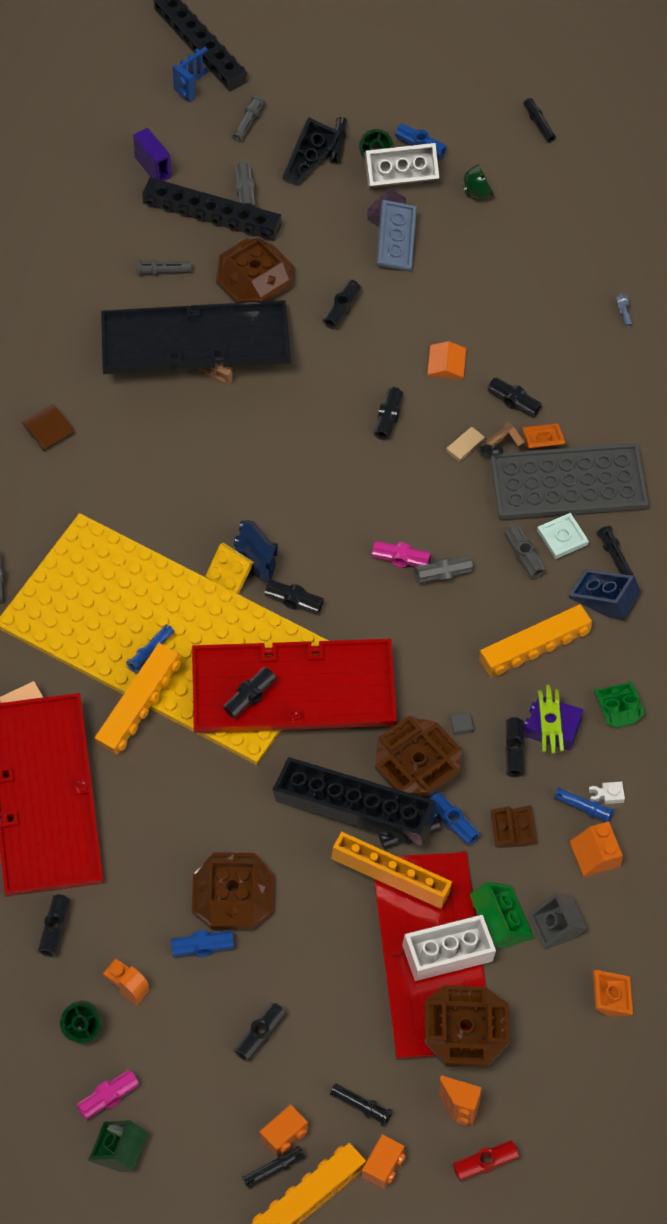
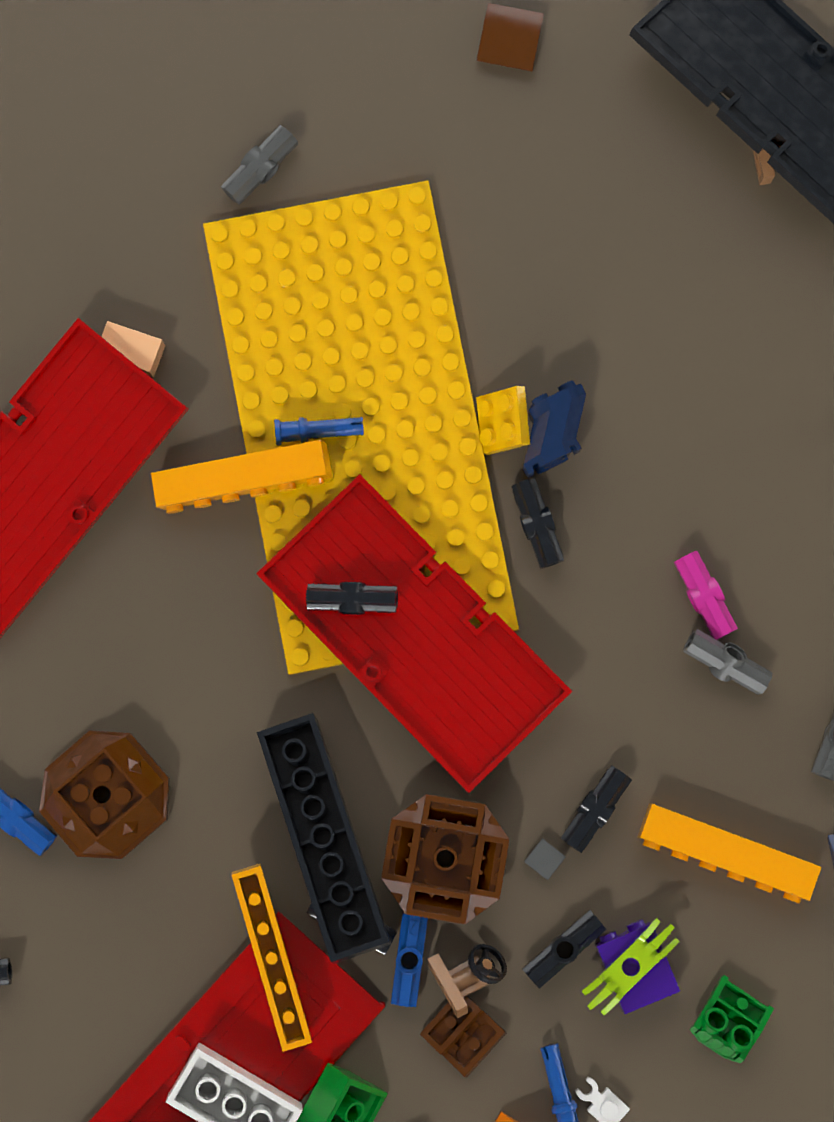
camera: 50 degrees right, 25 degrees up
(459, 680) = (596, 809): none -> black piece
(488, 804) = (467, 976): none -> medium nougat piece

